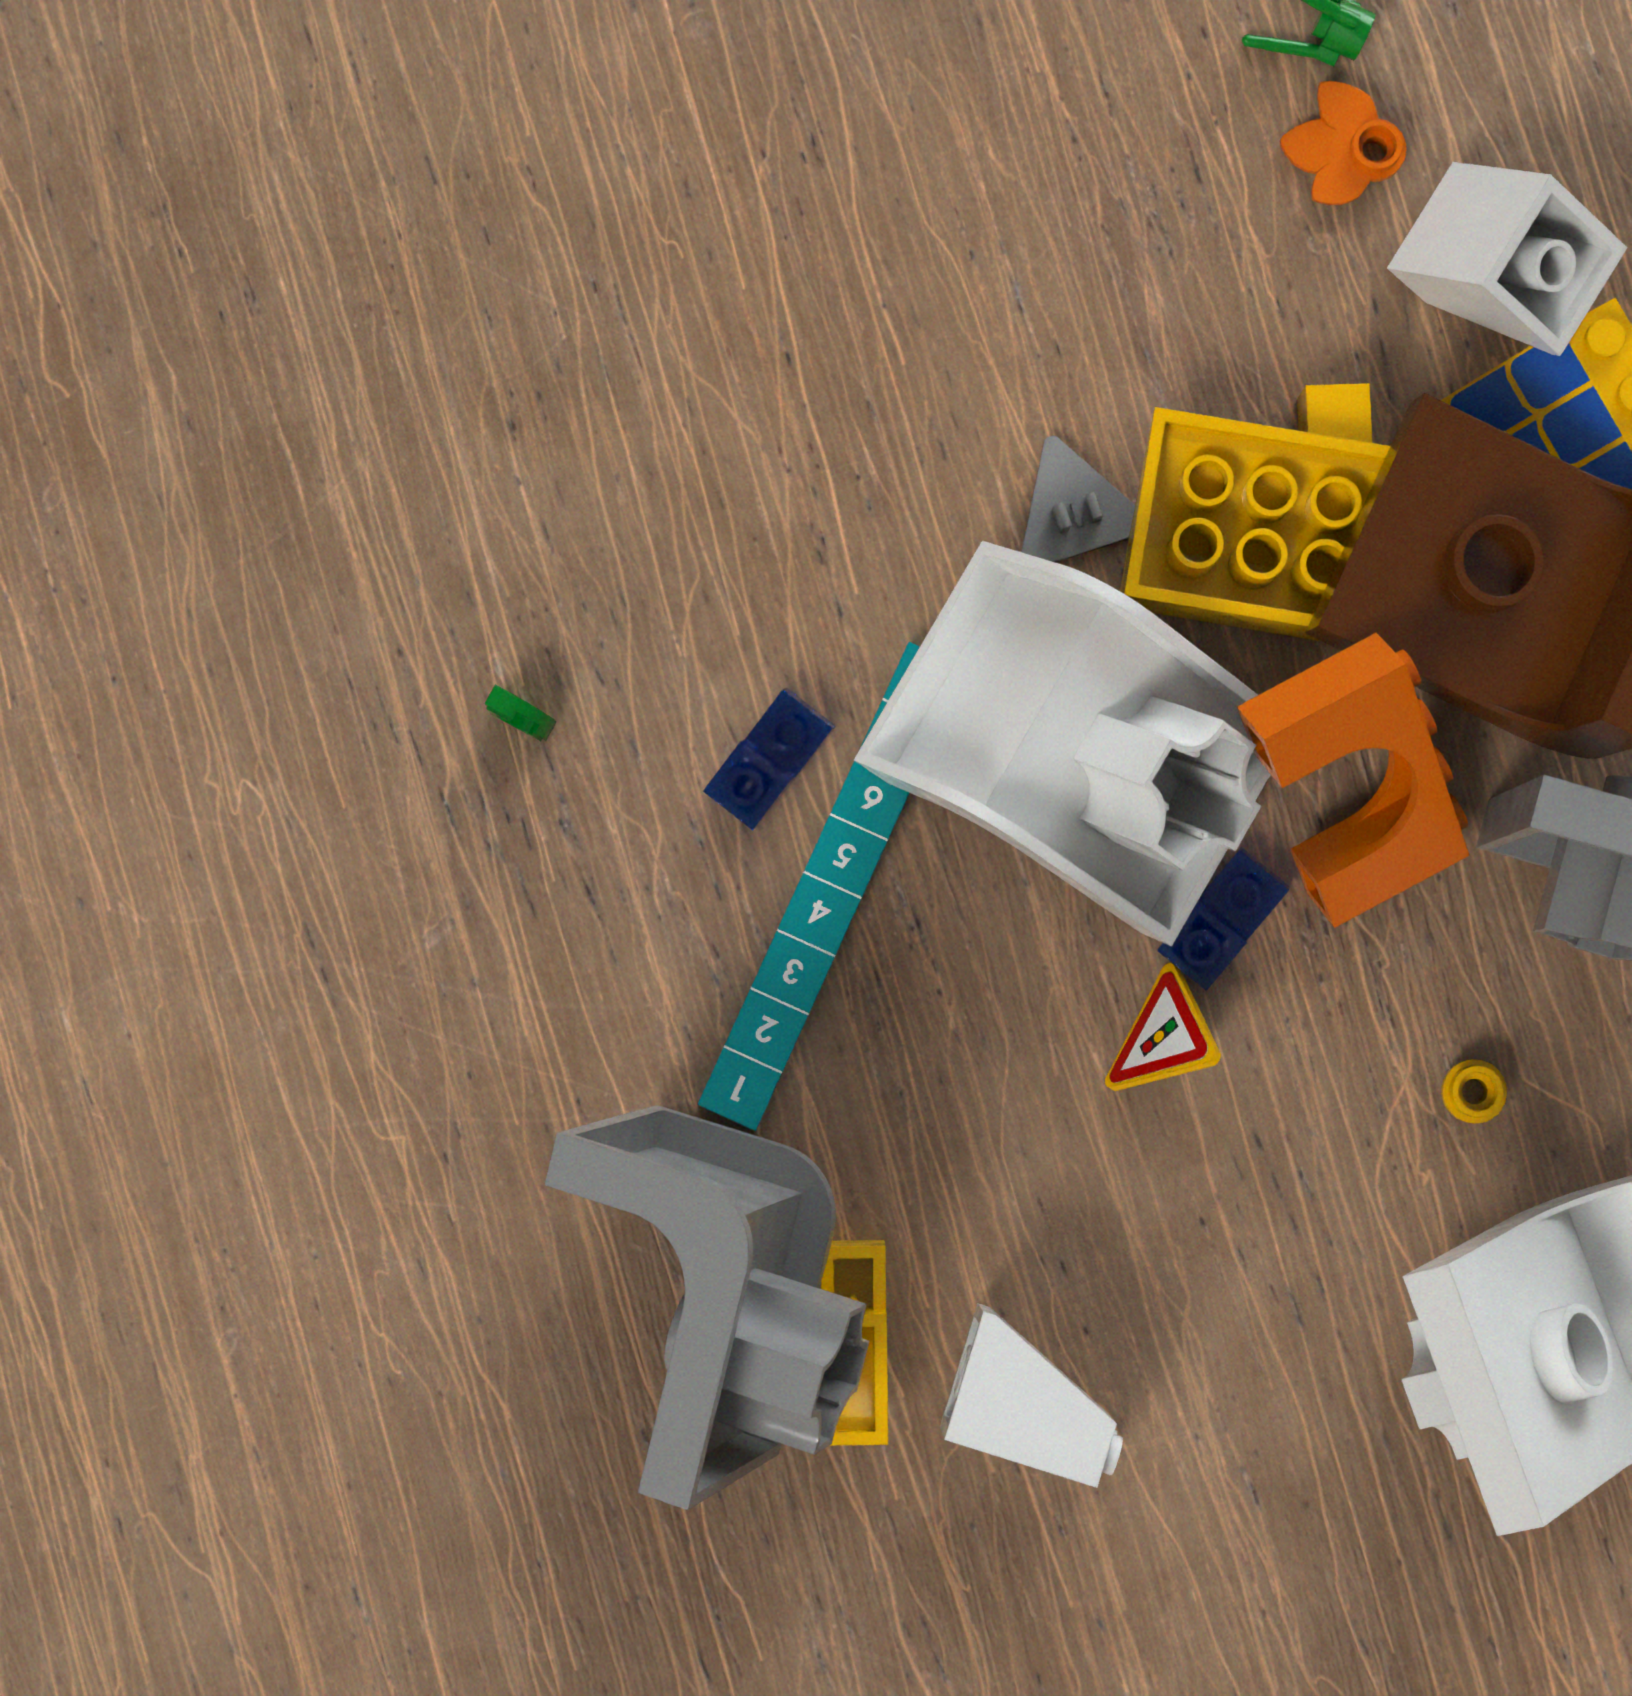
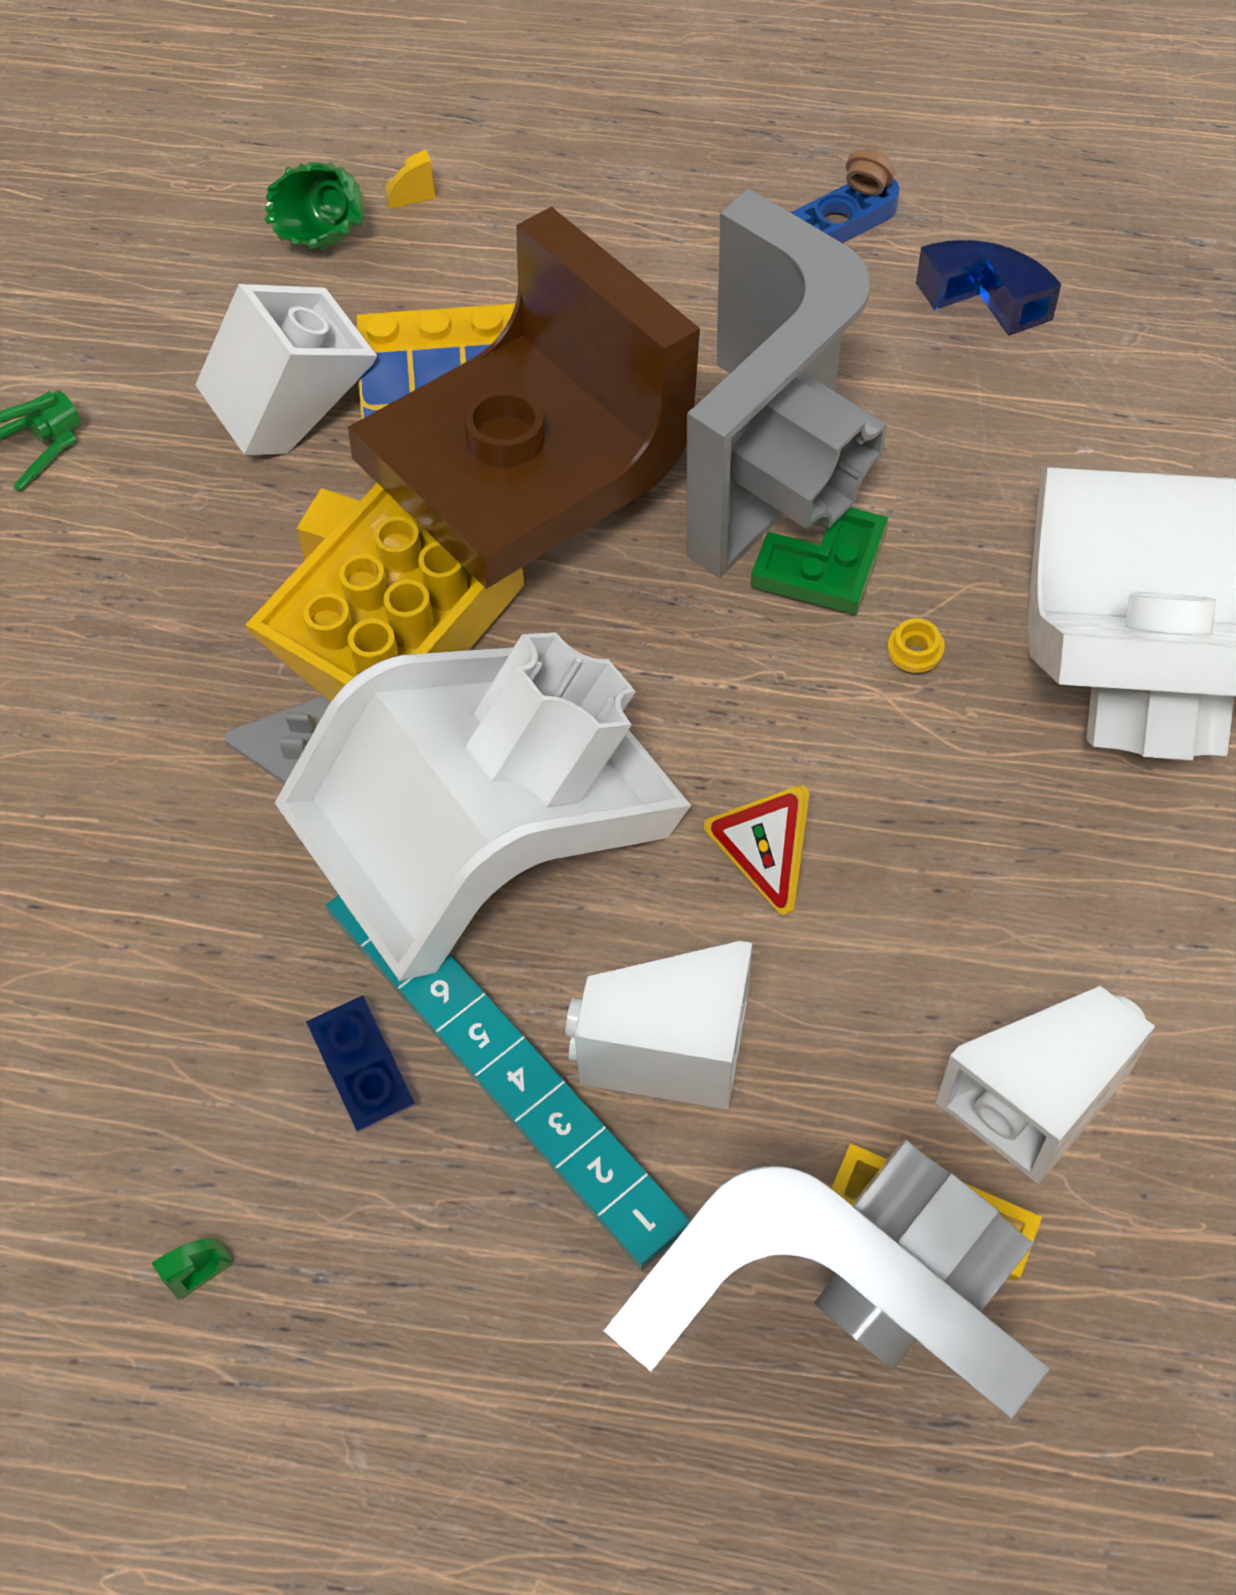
camera: 65 degrees left, 25 degrees down
(917, 1033) = (664, 1026): none -> white slope
(1225, 918) = (686, 759): clear blue slope -> none
(1335, 144) = (137, 452): orange plate -> none
(1411, 822) = (682, 596): orange arch -> none
(1524, 966) = (824, 573): none -> green plate

